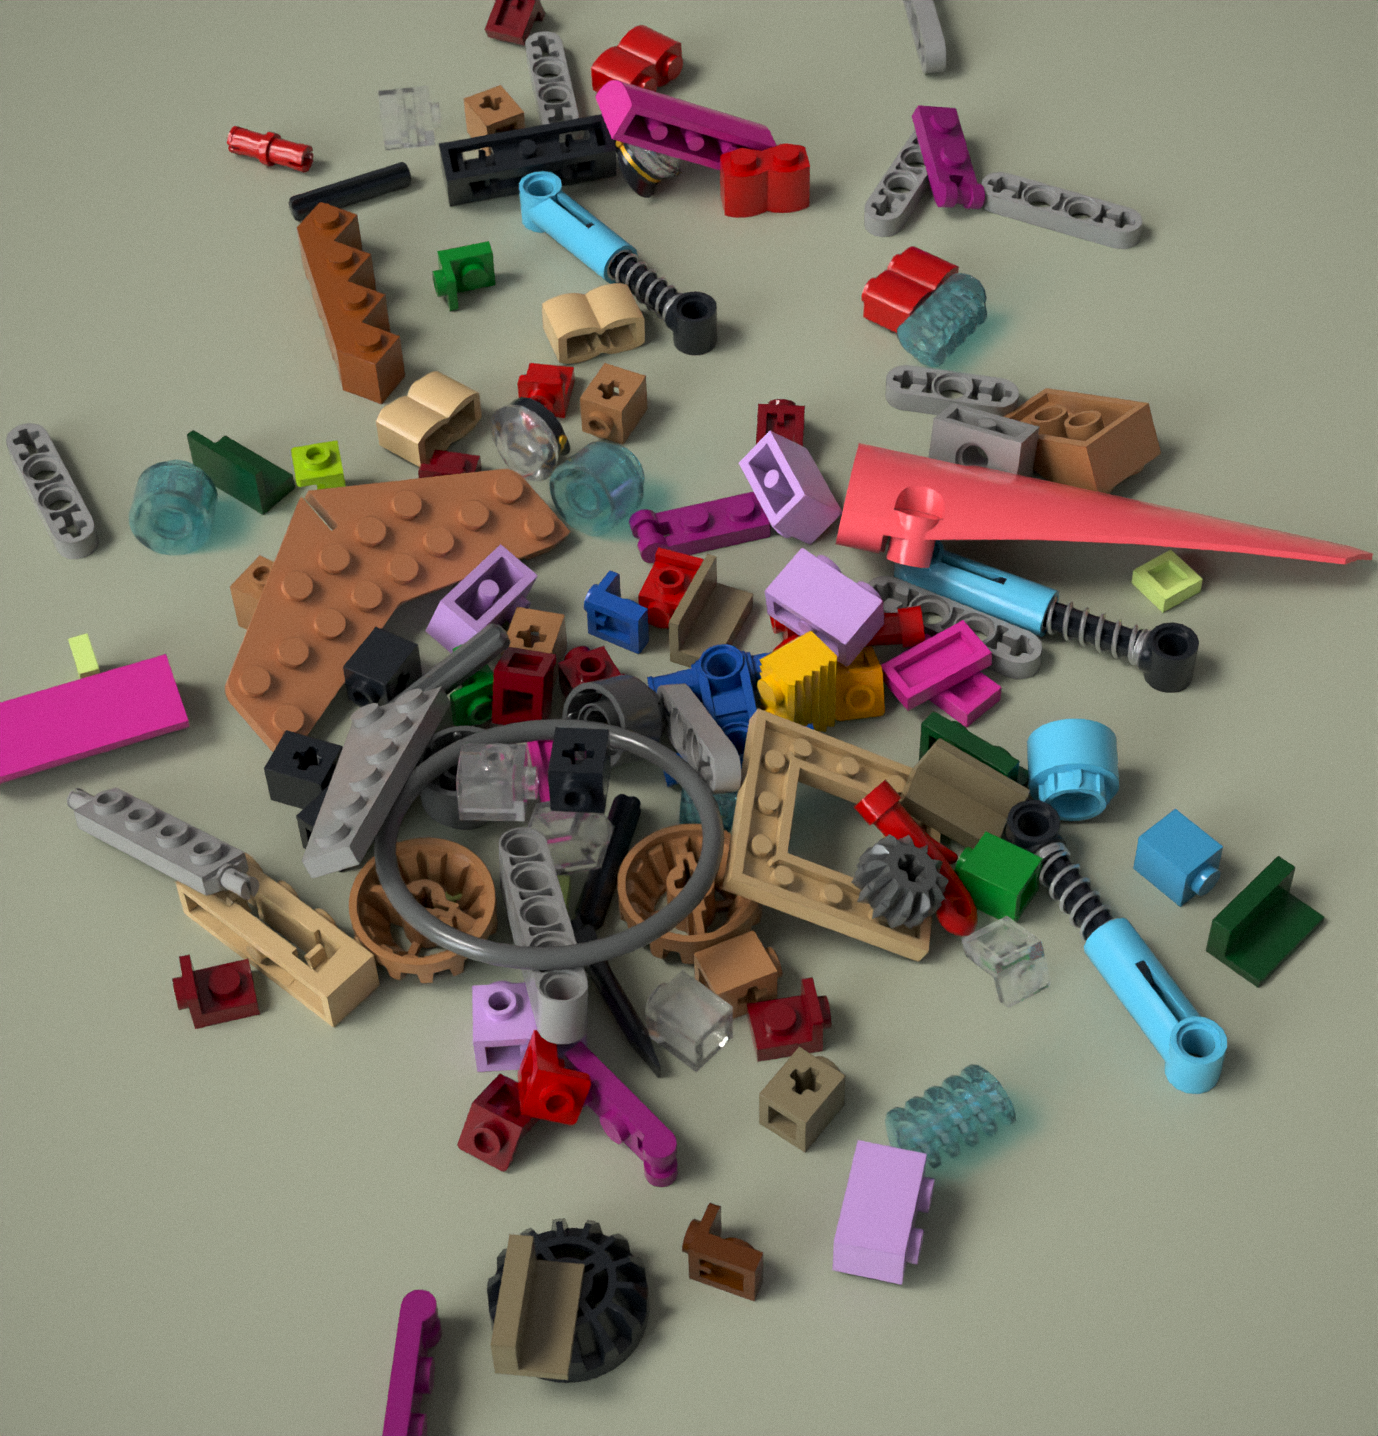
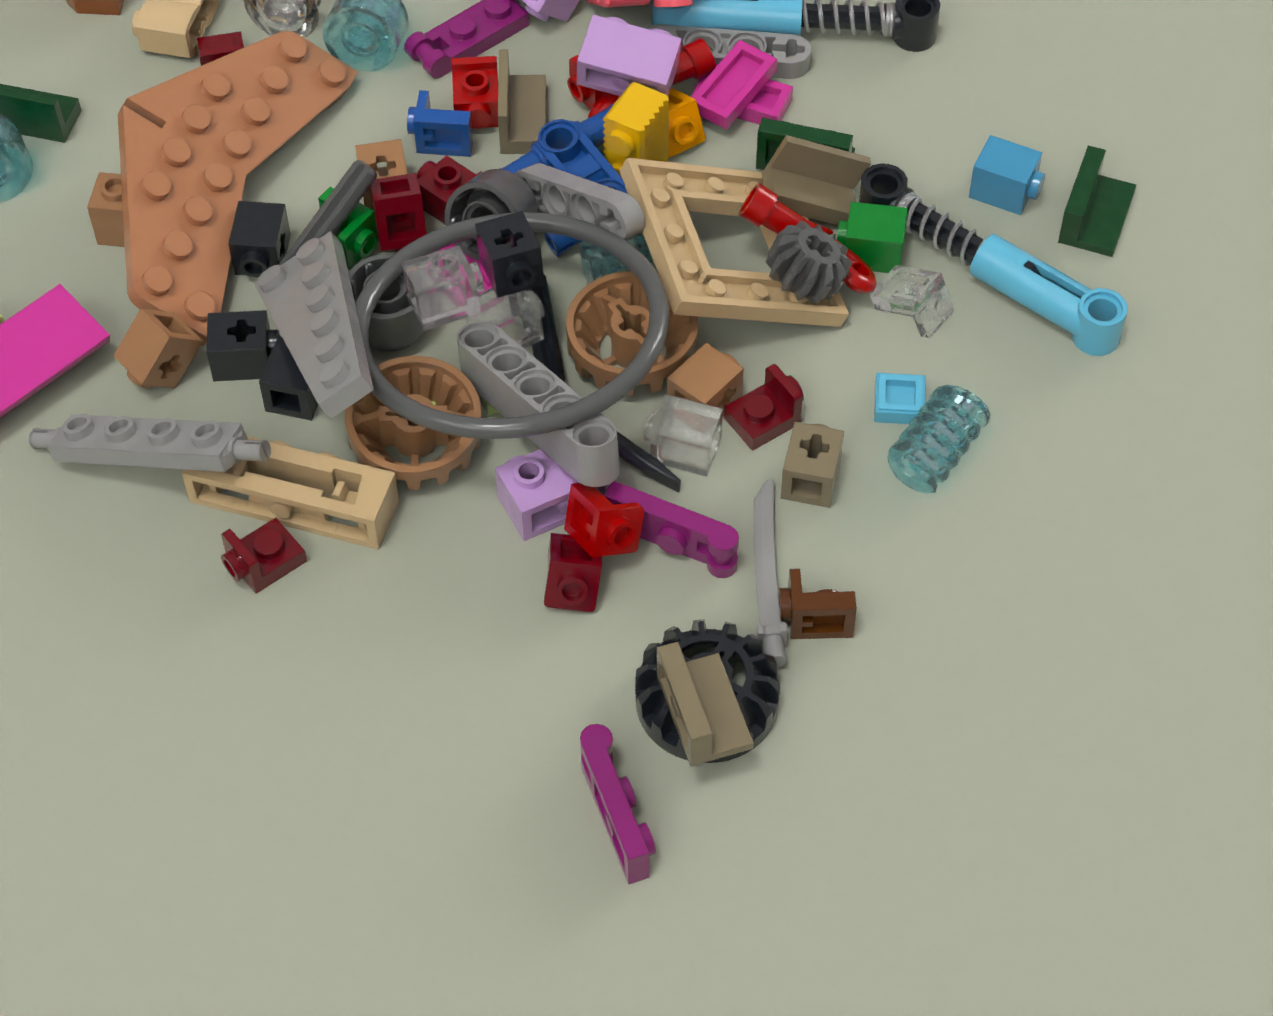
camera: 25 degrees left, 5 degrees up
(225, 749) = (157, 349): none -> medium nougat brick
(318, 465) = (107, 81): lime bracket -> none
(482, 598) = (320, 152): lavender brick -> none
(667, 1265) = (770, 630): none -> light grey sword
(880, 1213) = (926, 527): lavender brick -> none
(936, 1058) = (898, 397): none -> medium azure tile
(1073, 767) = (891, 127): medium azure piece -> none

